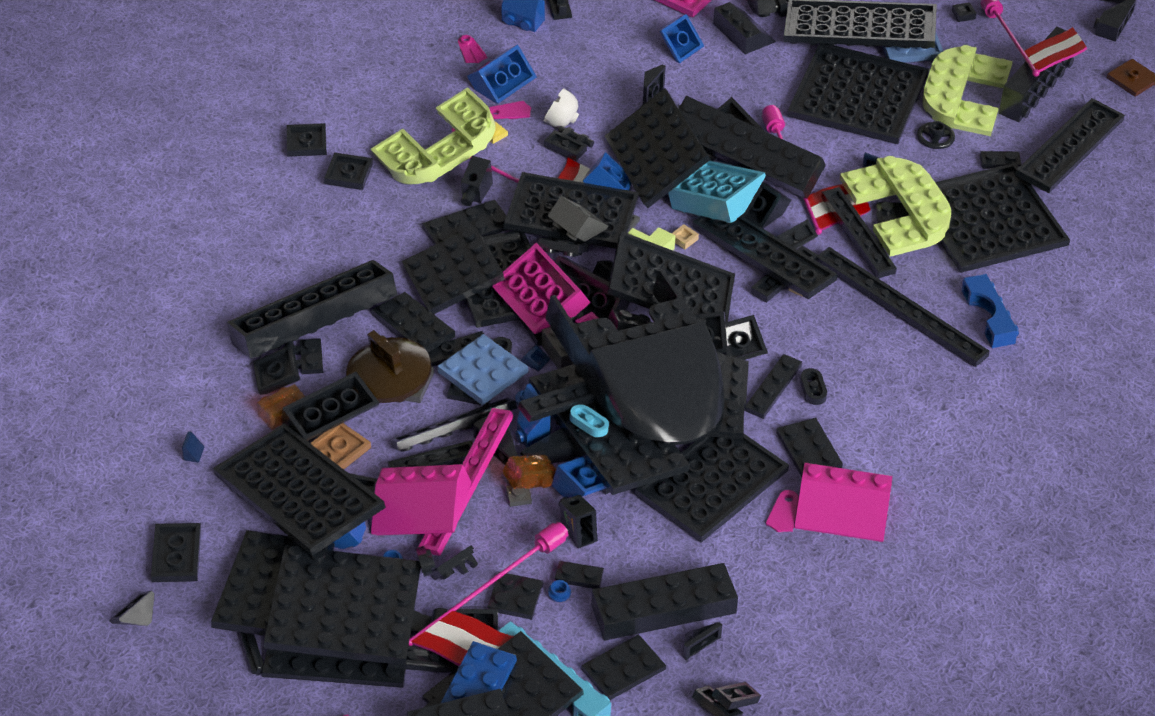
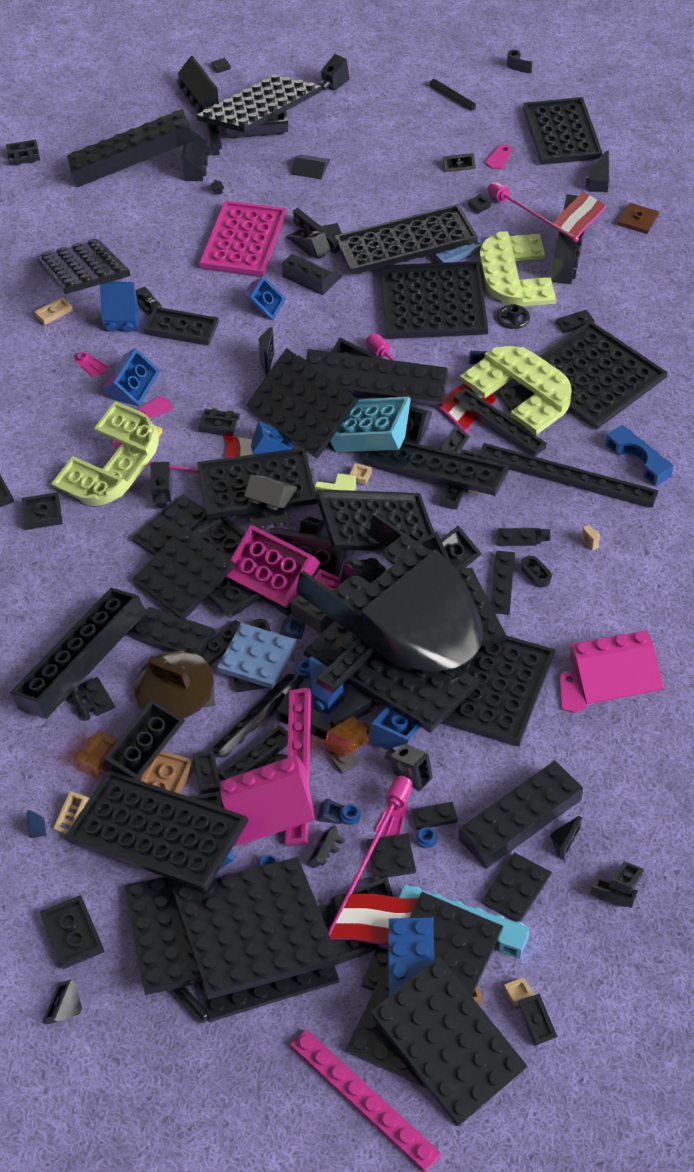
camera: 20 degrees left, 5 degrees up
(233, 441) = (68, 804): none -> tan slope
(276, 370) = (74, 721): black tile -> none
(377, 456) = (206, 771): none -> black plate
(426, 560) = (305, 856): black plate -> none
(479, 536) = (330, 812): none -> dark blue slope
(499, 539) = (353, 809): none -> blue plate
(536, 564) = (395, 821): none -> dark pink piece
(562, 110) = (201, 394): white cylinder -> none
(581, 40) = (181, 325): none -> black plate
(589, 420) = (380, 672): medium azure plate -> none
(808, 444) = (560, 626): black plate -> none
(819, 349) = (522, 536): none -> black hinge
(890, 372) = (590, 537): none -> tan plate
(1069, 145) = (624, 292): black plate -> none

